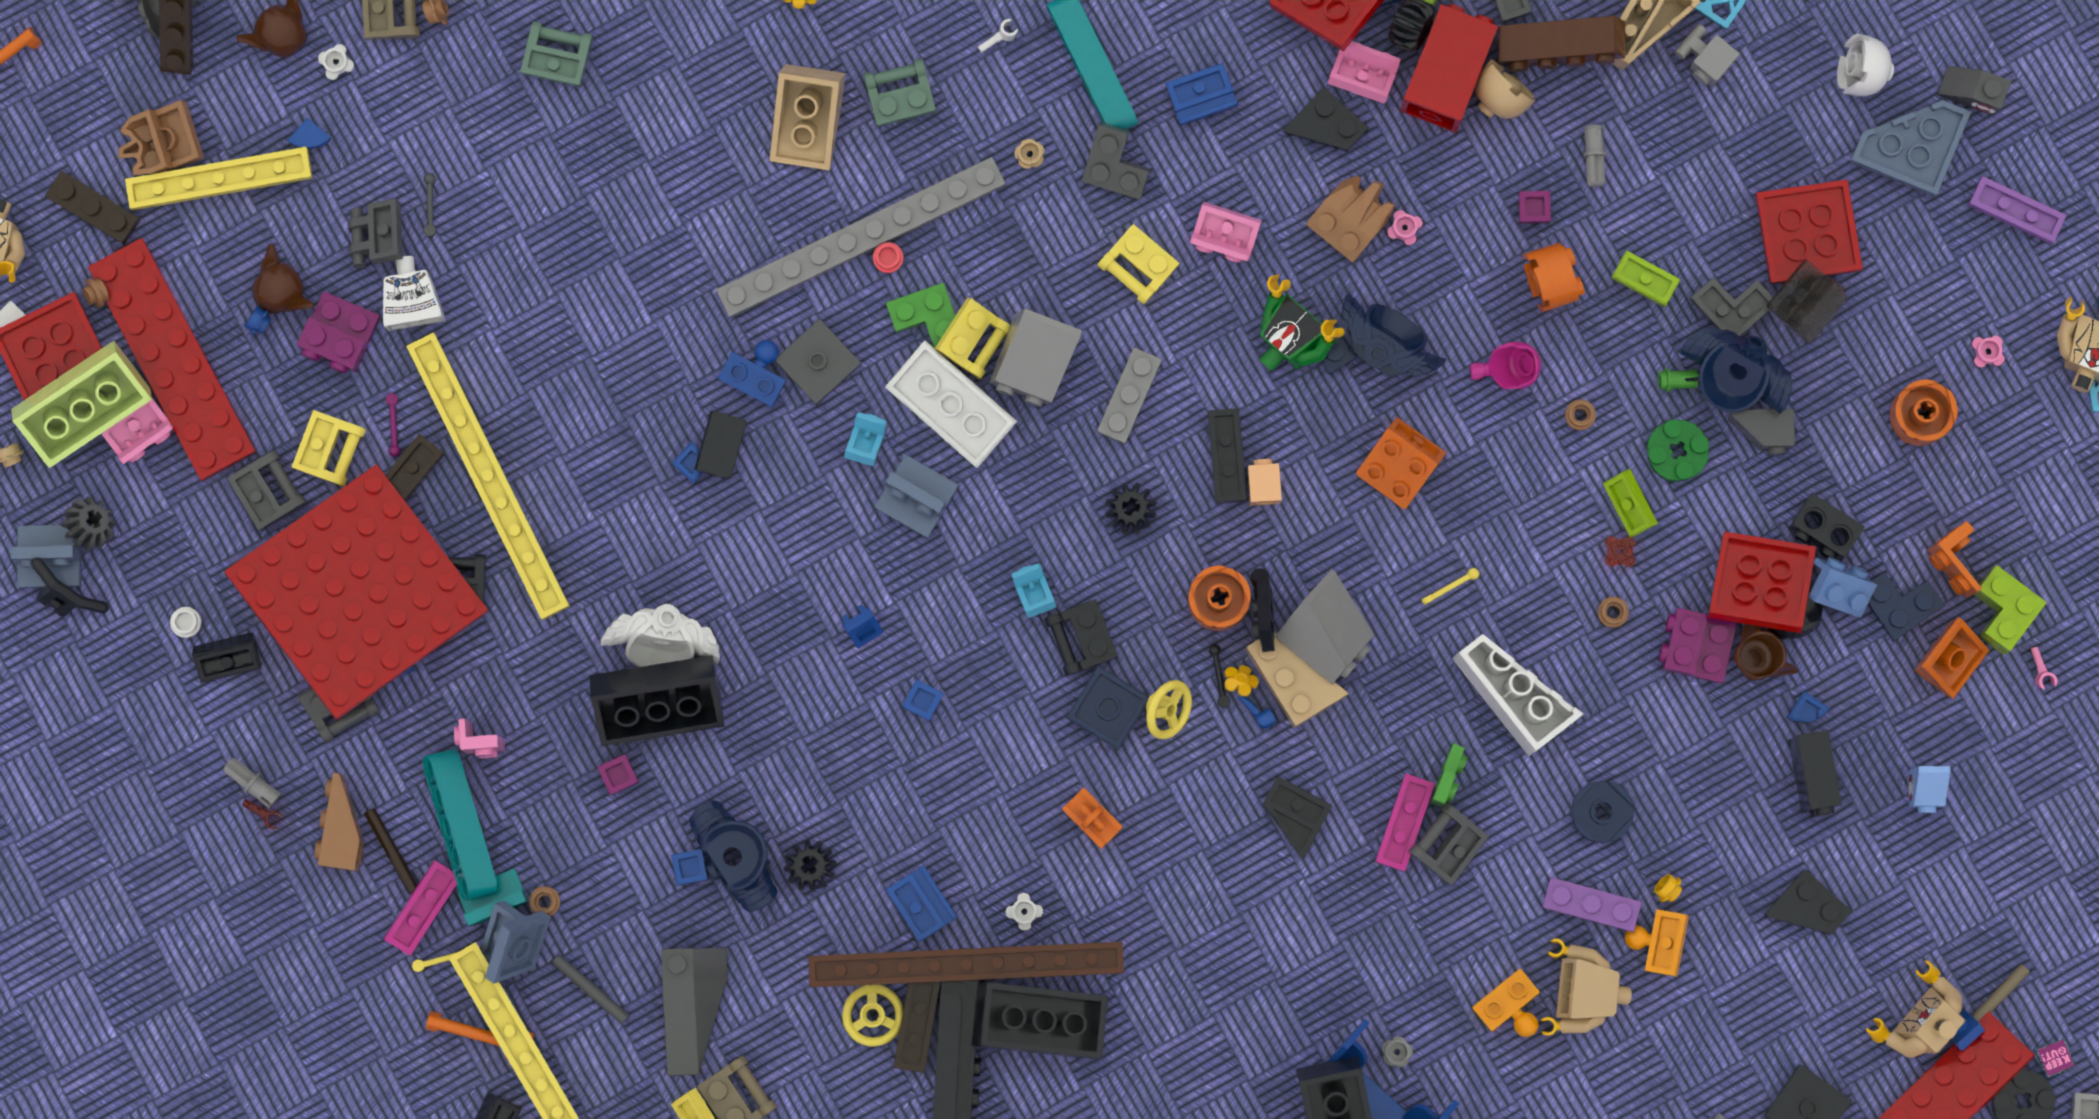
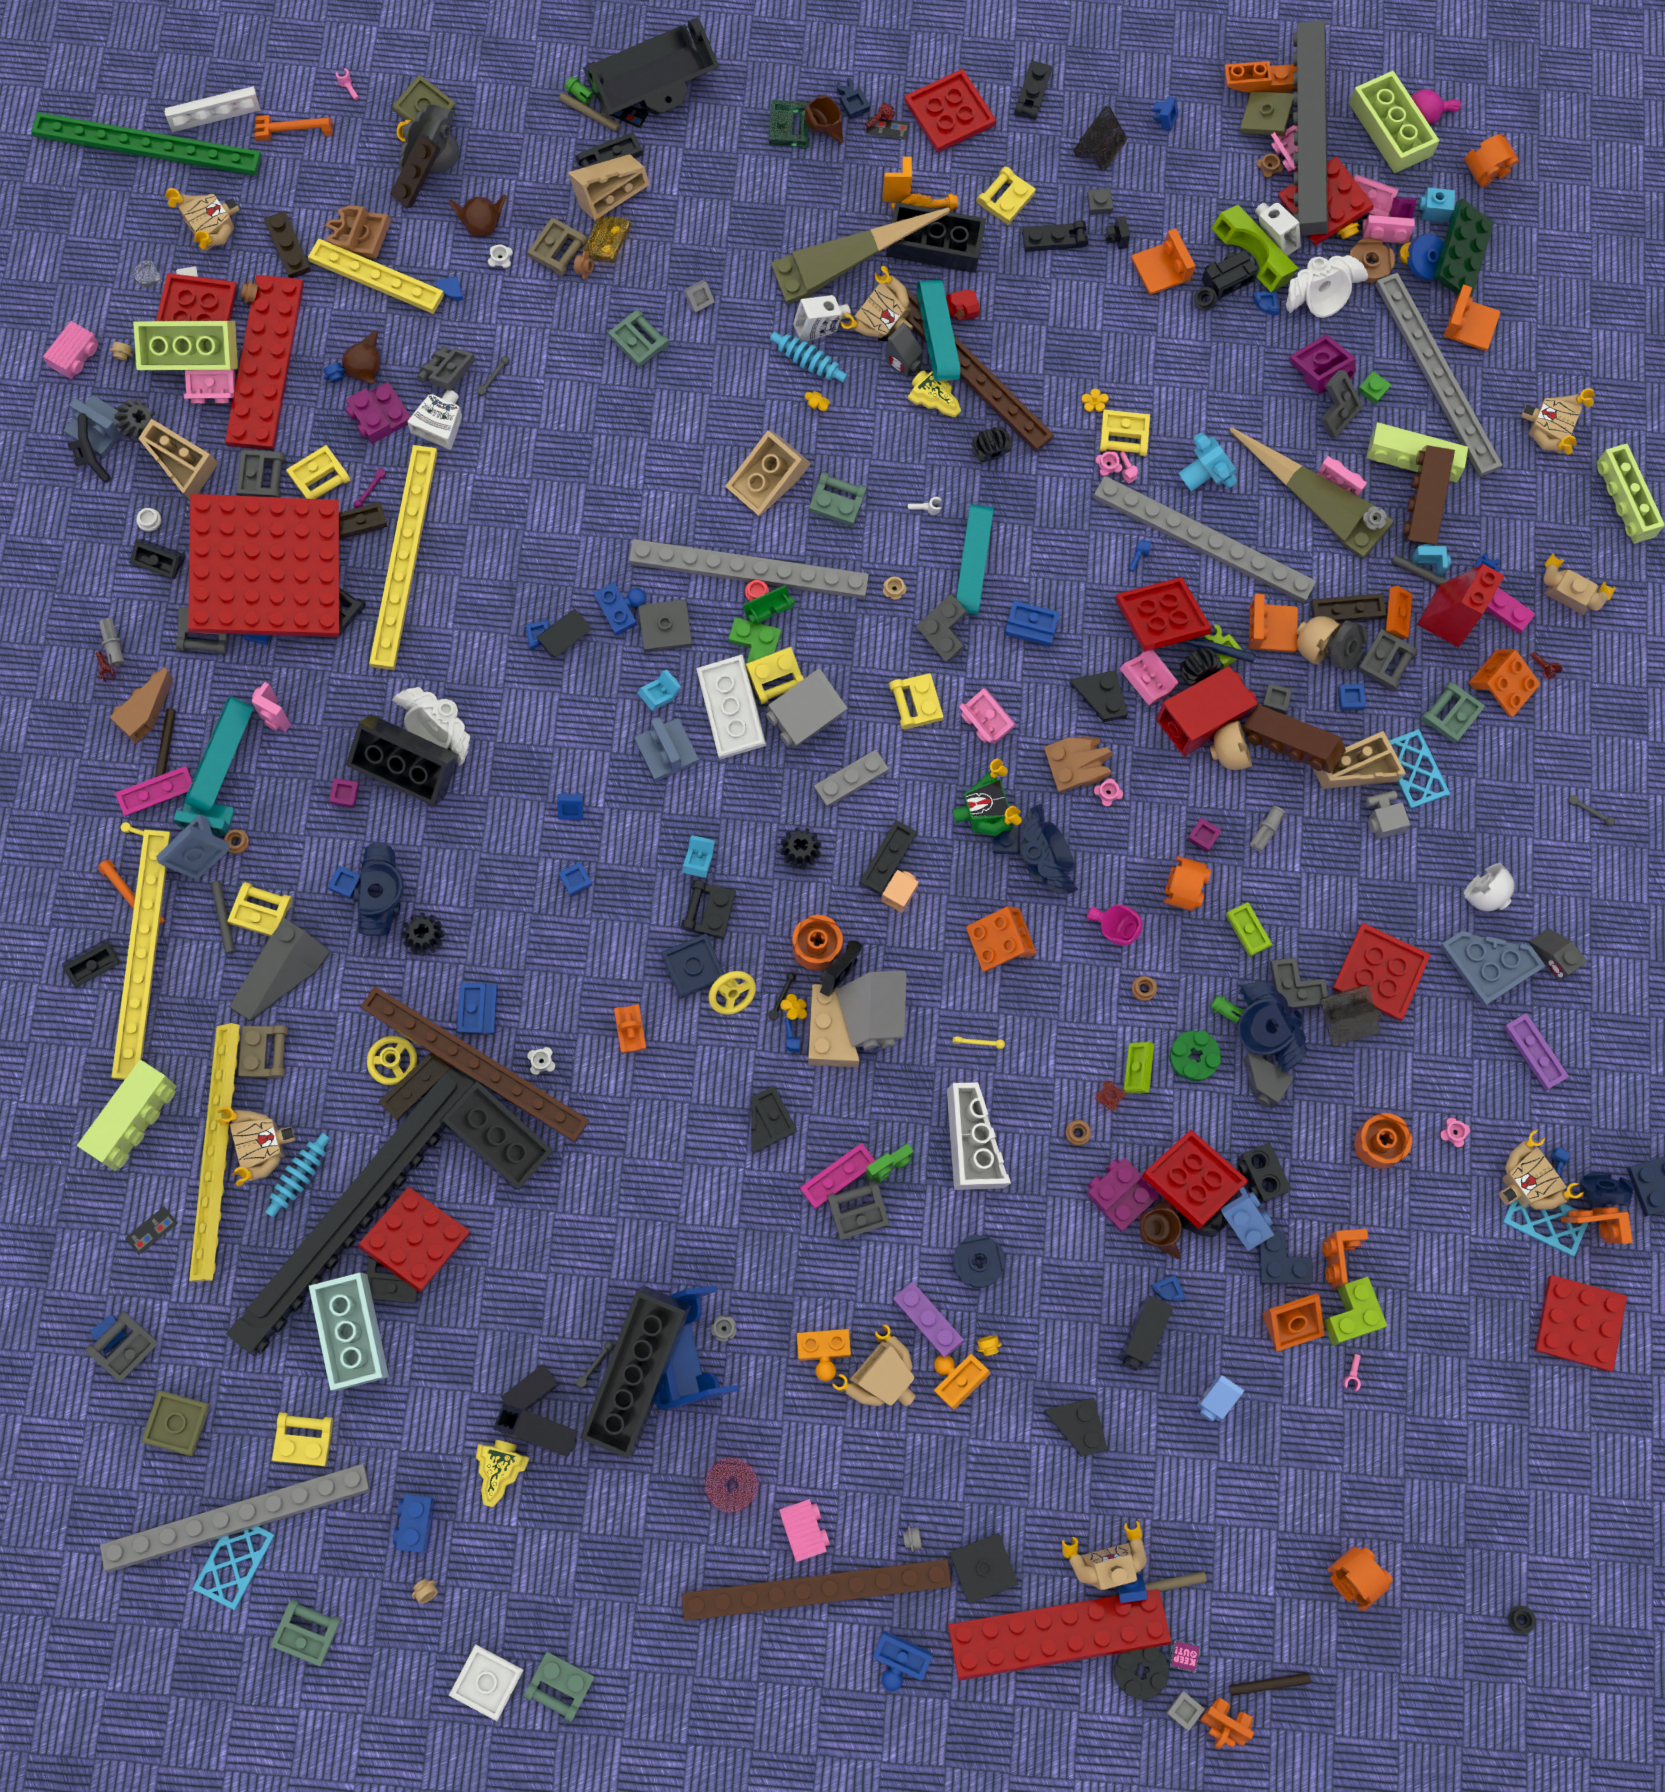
camera: 25 degrees right, 10 degrees down
(168, 534) = (179, 458): none -> tan wedge
(627, 965) = (256, 917): none -> light yellow plate
(918, 254) = (765, 605): none -> green hinge

